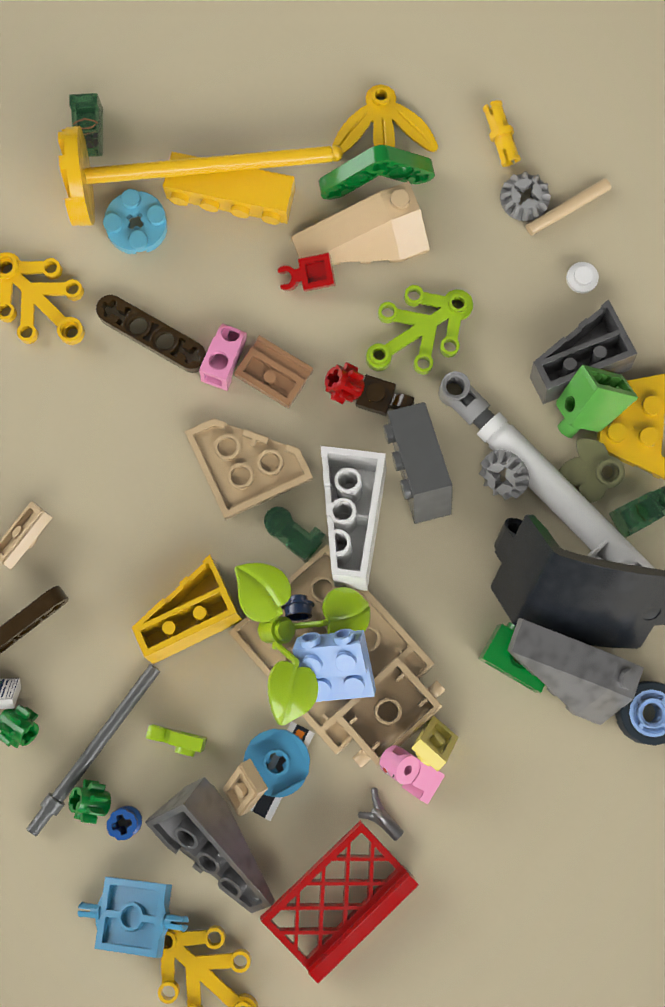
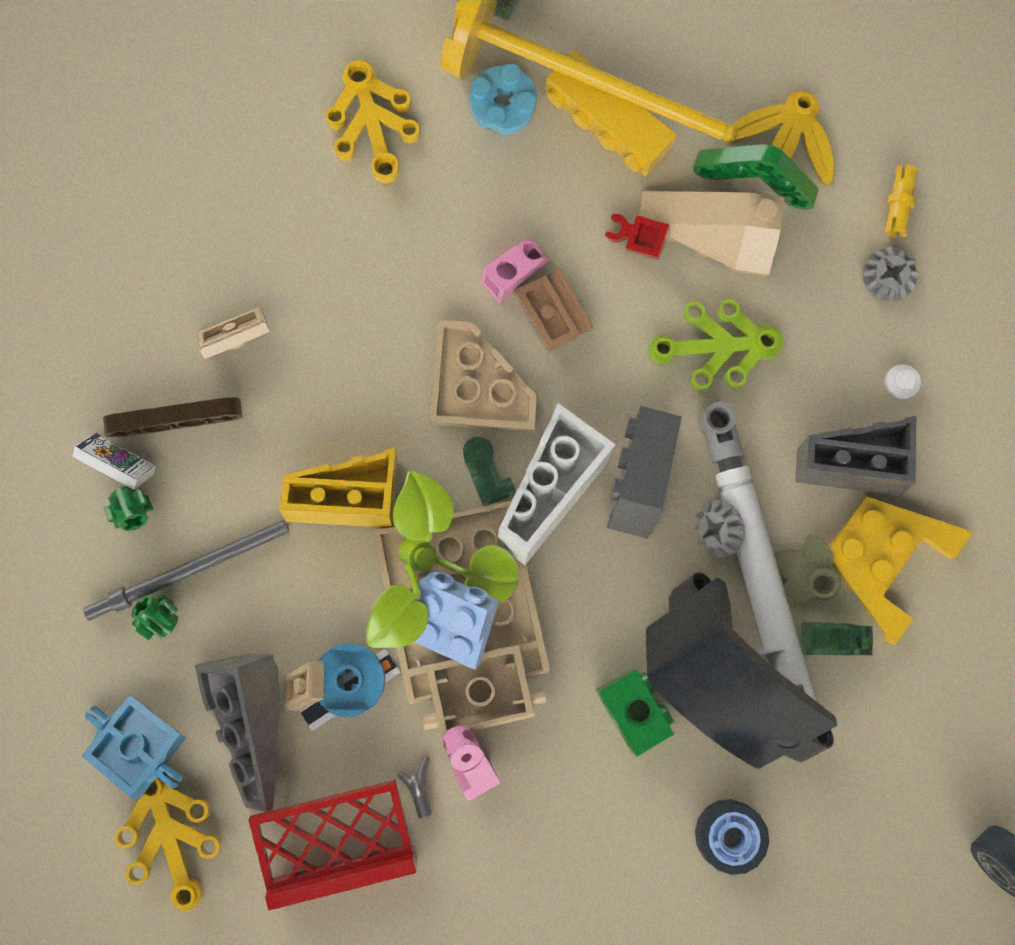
camera: 25 degrees right, 0 degrees up
(127, 812) = (168, 662): blue bush -> none
(149, 337) = (455, 213): dark brown beam -> none
(185, 742) = (273, 612): lime plate -> none
(298, 608) = (450, 544): dark blue plate -> none
(344, 383) = (614, 357): red gear -> none
(380, 396) = (642, 388): dark brown plate -> none
(434, 744) = (507, 747): light yellow plate -> none
(568, 206) = (927, 306): tan bar -> none
(581, 676) = (684, 763): flat silver wedge -> none
(593, 400) = (846, 504): bright green torso -> none

